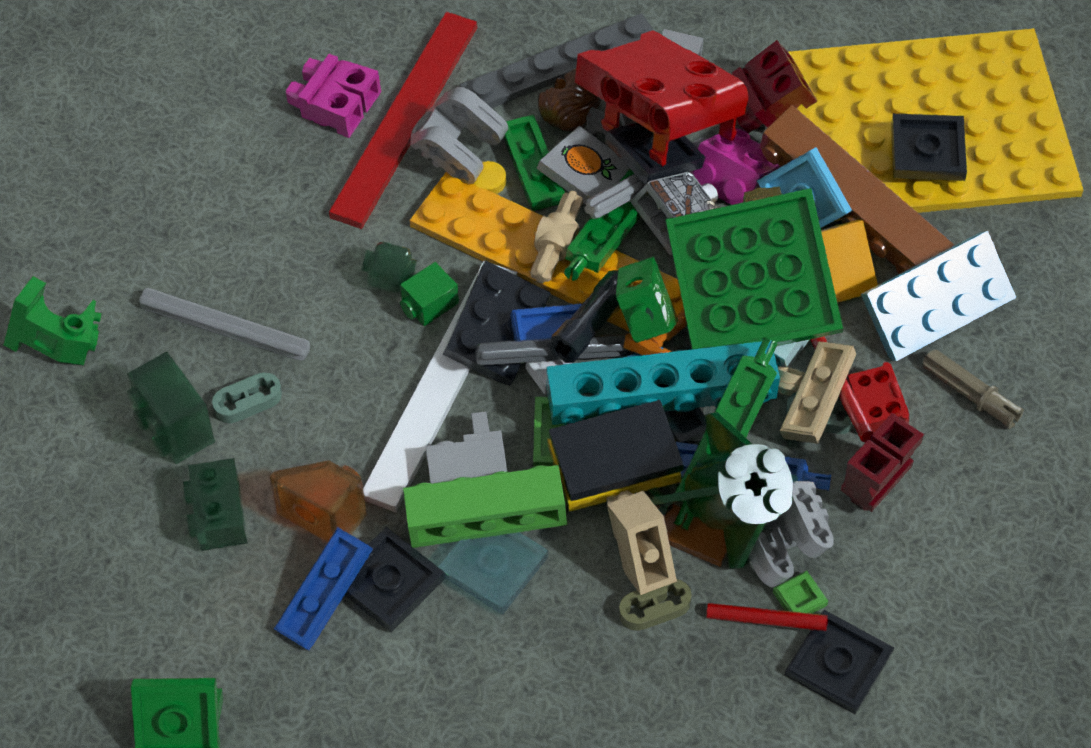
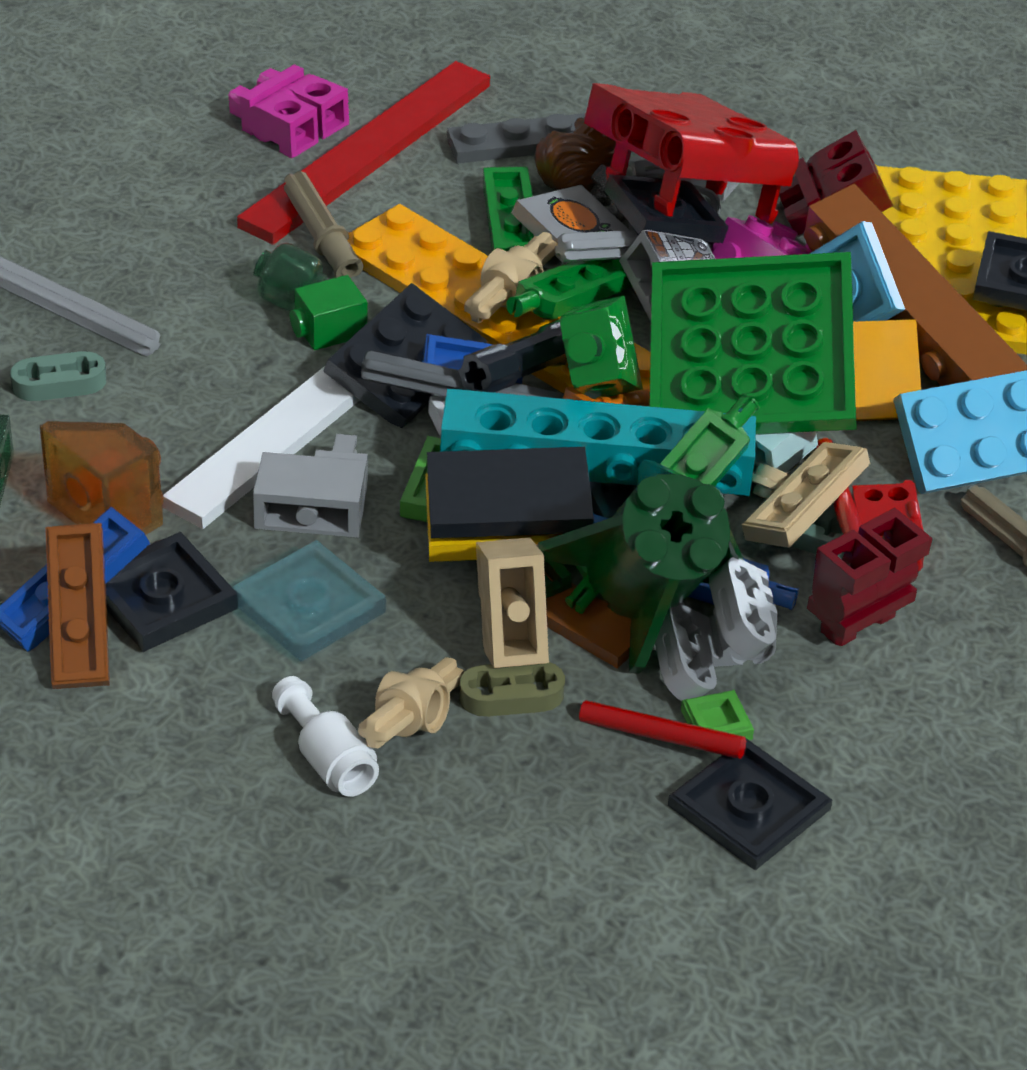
camera: 10 degrees right, 15 degrees down
(339, 614) = (77, 606): none -> dark orange tile
(405, 218) = (328, 236): none -> dark tan axle
(442, 124) = (405, 158): light grey piece -> none
(485, 506) = (315, 527): bright green brick -> none
(492, 177) = (452, 218): yellow tile -> none
(544, 682) = (328, 740): none -> white piece
(594, 639) = (411, 702): none -> tan axle

